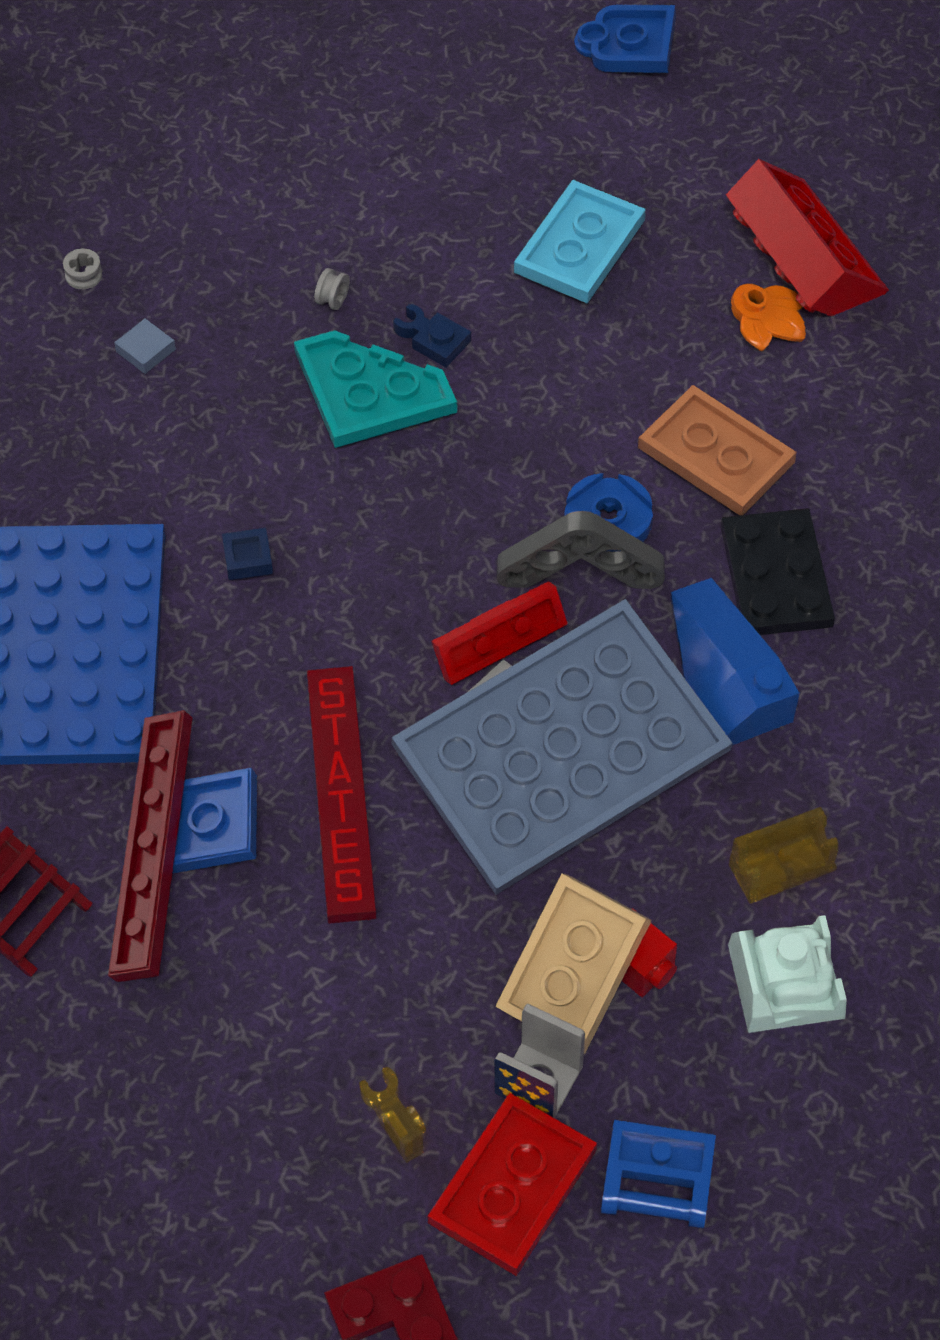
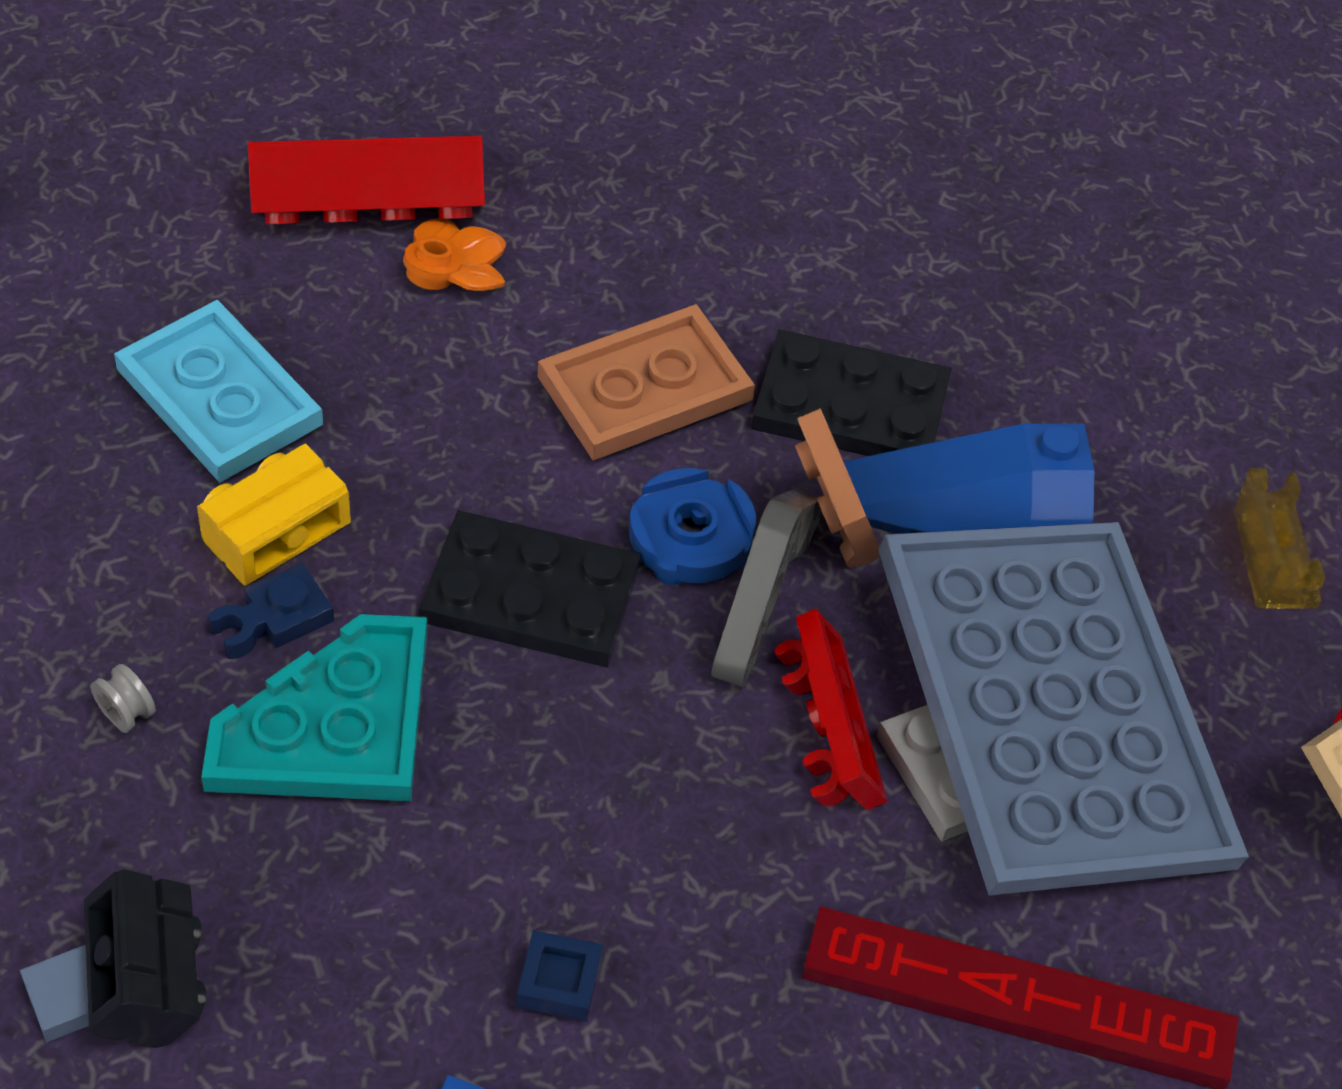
camera: 75 degrees left, 5 degrees down
(167, 361) = (142, 959): none -> black brick
(496, 302) = (273, 513): none -> yellow brick
(518, 451) = (531, 588): none -> black plate
(662, 567) = (840, 501): none -> nougat plate

